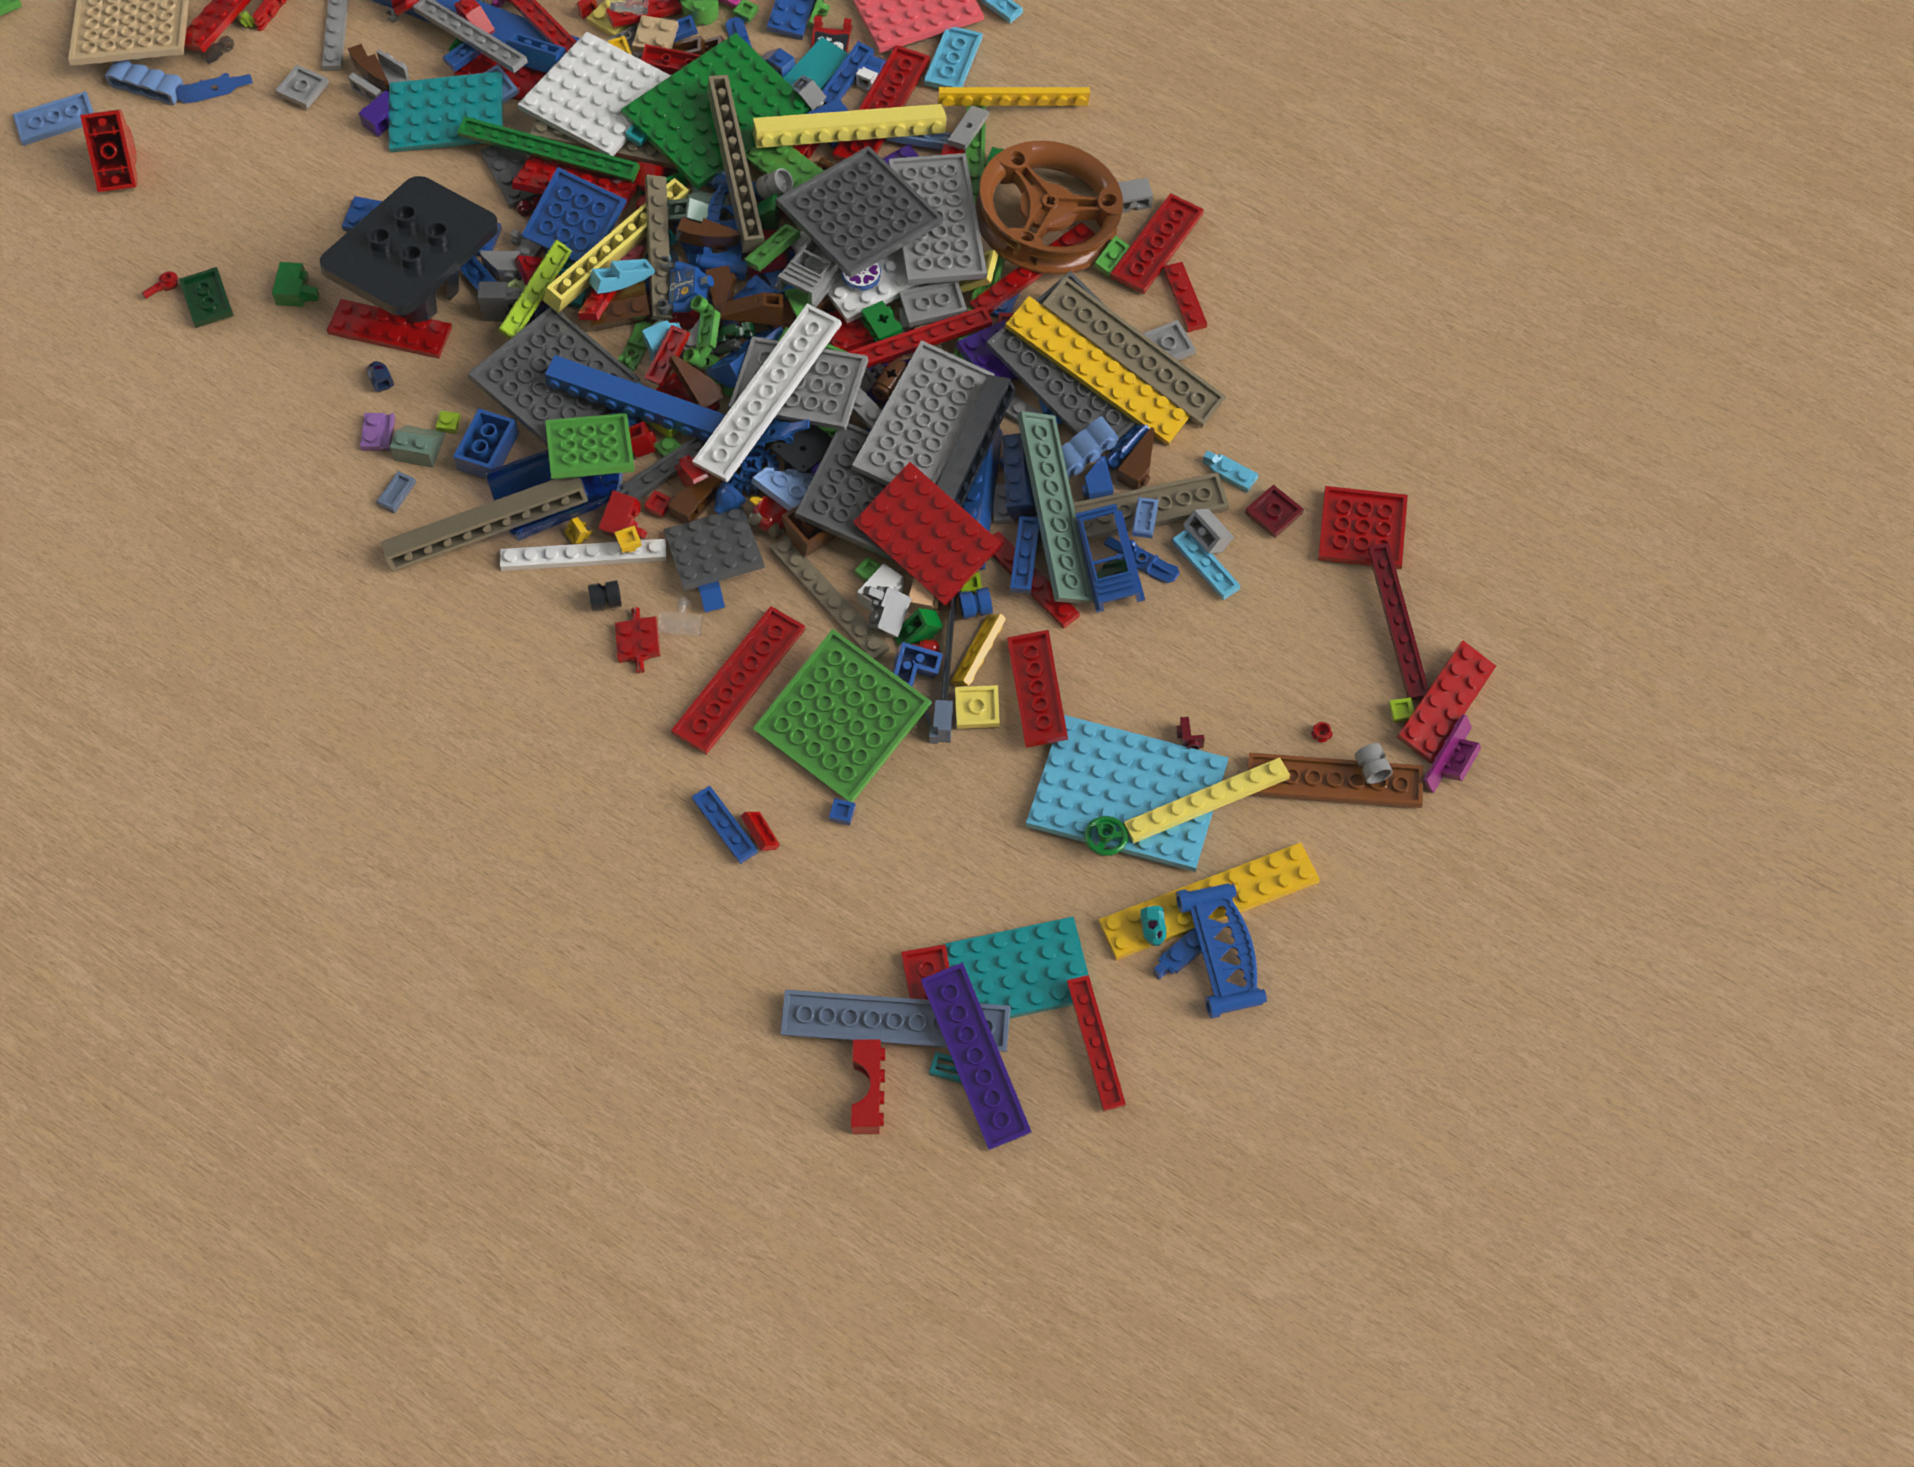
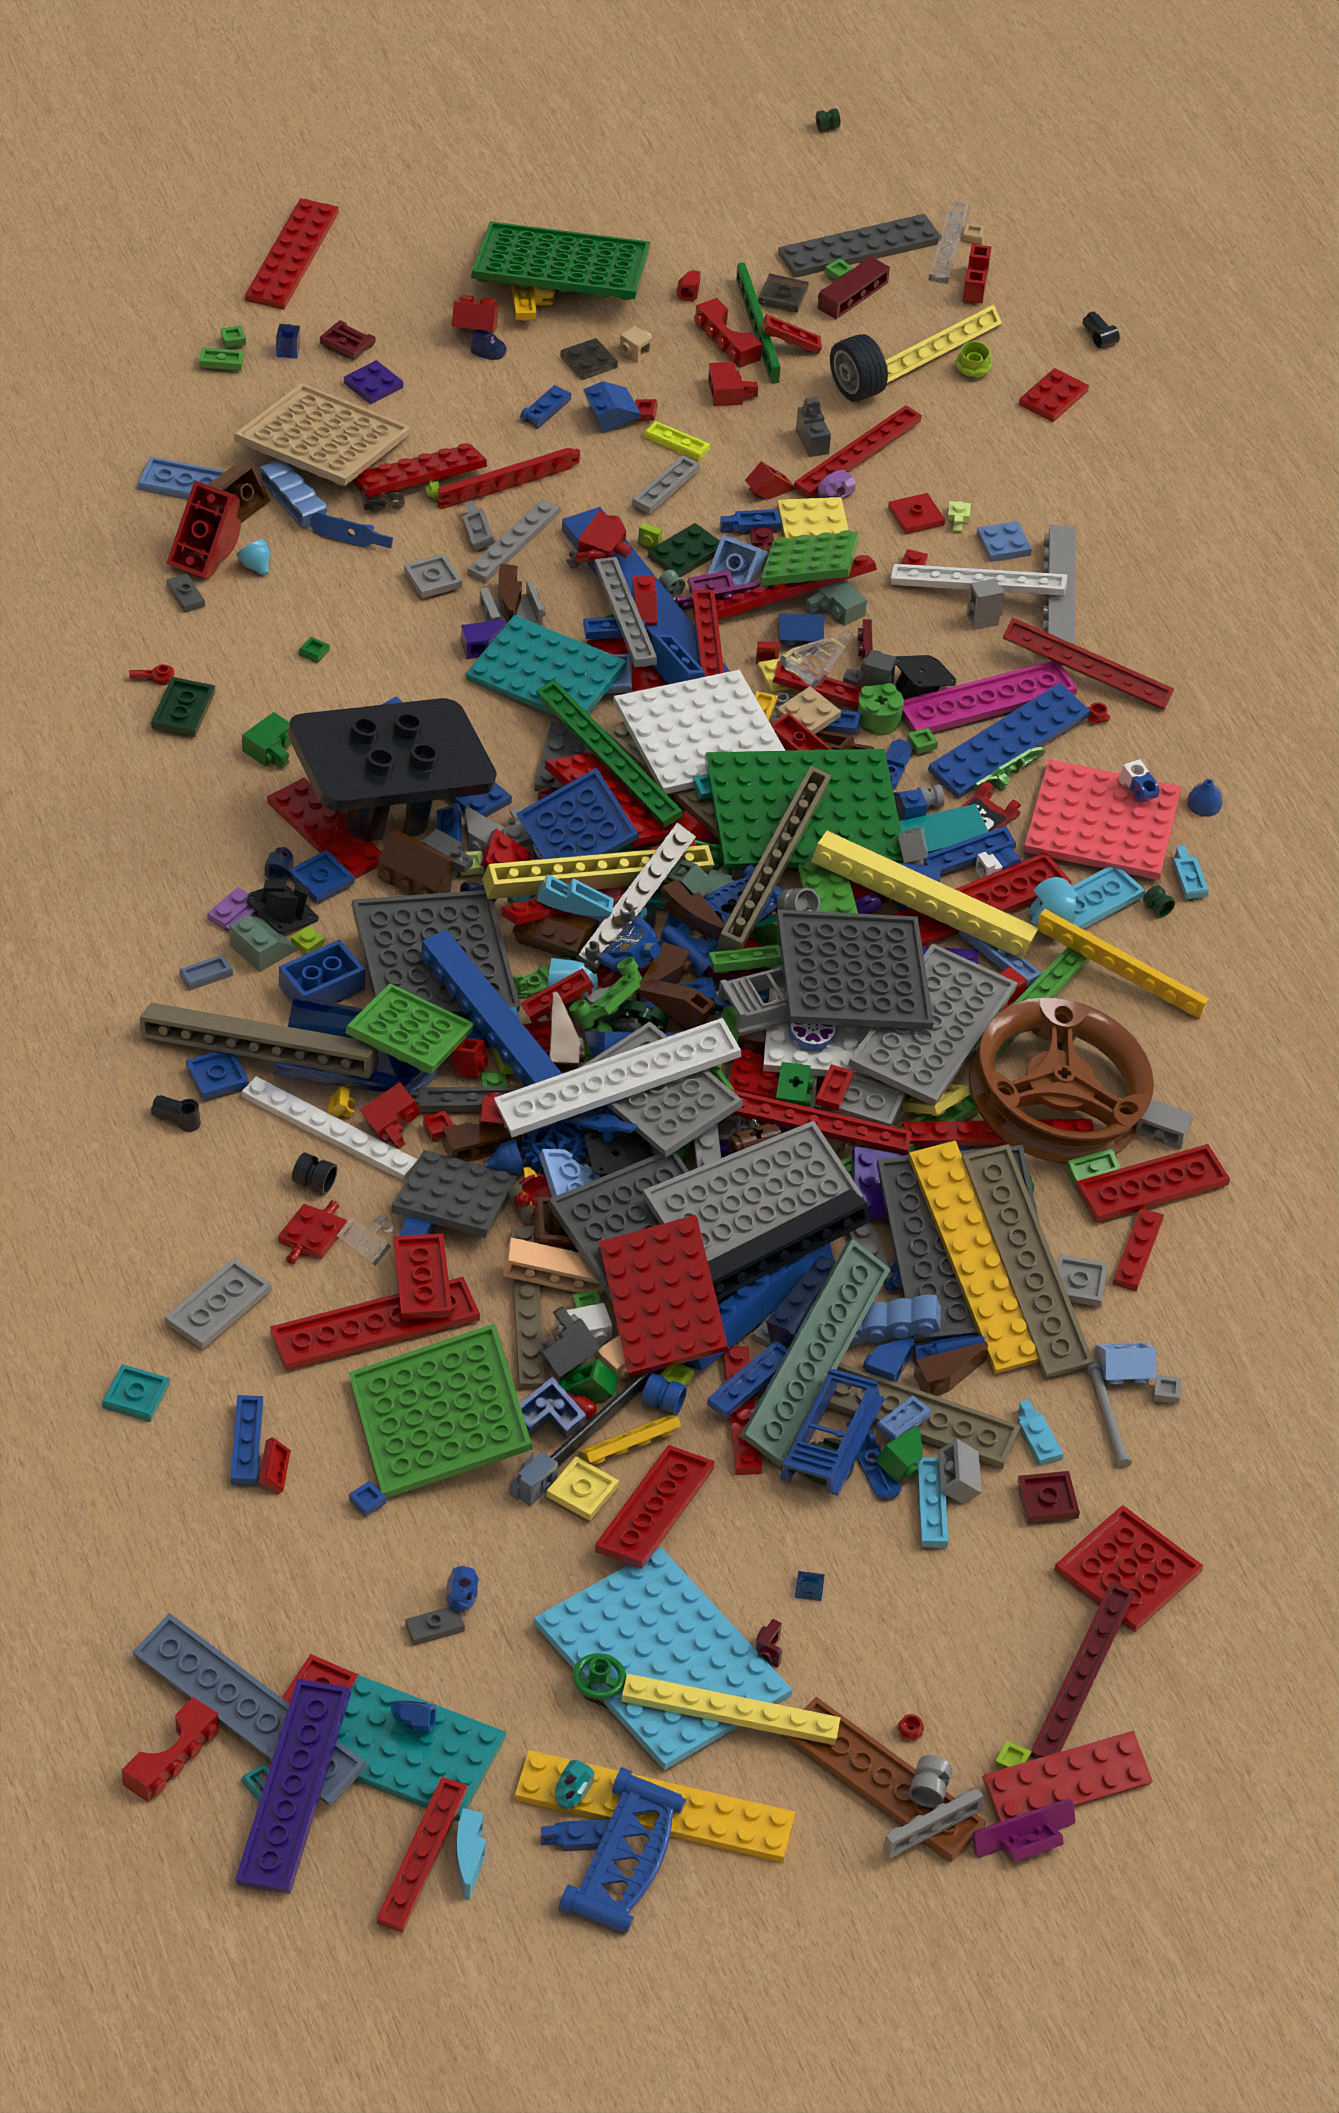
camera: 30 degrees right, 15 degrees down
(103, 96) = (246, 484): none -> reddish brown slope
(130, 206) = (185, 592): none -> dark grey plate
(162, 148) = (255, 556): none -> medium azure helmet
(263, 195) = (314, 649): none -> green tile
(302, 29) = (478, 526): none -> light grey hinge
(409, 407) = (282, 905): none -> black piece
(417, 367) = (322, 876): none -> blue plate
(467, 611) = (182, 1112): none -> black piece
(471, 565) = (216, 1074): none -> blue plate
(478, 319) = (414, 866): none -> reddish brown slope
(535, 289) = (473, 870): lime tile -> none
(617, 841) = (136, 1393): none -> teal tile
(619, 737) = (218, 1303): none -> light grey plate
(628, 539) = (376, 1135): yellow tile -> none
(746, 624) = (422, 1276): none -> red plate
(788, 45) = (934, 796): none -> light grey wheel
(814, 153) = (868, 903): none -> dark purple piece
(824, 561) = (549, 1267): none -> light nougat brick
(911, 306) = (834, 1087): none -> red plate
(935, 74) = (1057, 897): none -> medium azure brick
(961, 834) = (462, 1588): none -> blue rock
(962, 872) = (434, 1625): none -> dark grey plate
(968, 127) = (1046, 964): light grey tile -> none
(997, 35) = (1159, 901): none -> dark green wheel
(1010, 947) = (415, 1715): none -> blue rock
(1121, 1018) = (470, 1849): none -> medium azure slope
(1165, 544) = (902, 1455): none -> green slope
(1176, 676) = (809, 1586): none -> clear blue tile
(1245, 381) = (1127, 1361): none -> light blue slope
(1285, 385) = (1167, 1389): none -> light grey plate
(1297, 453) = (1123, 1459): none -> light grey bar
(1392, 798) = (932, 1823): none -> light grey plate

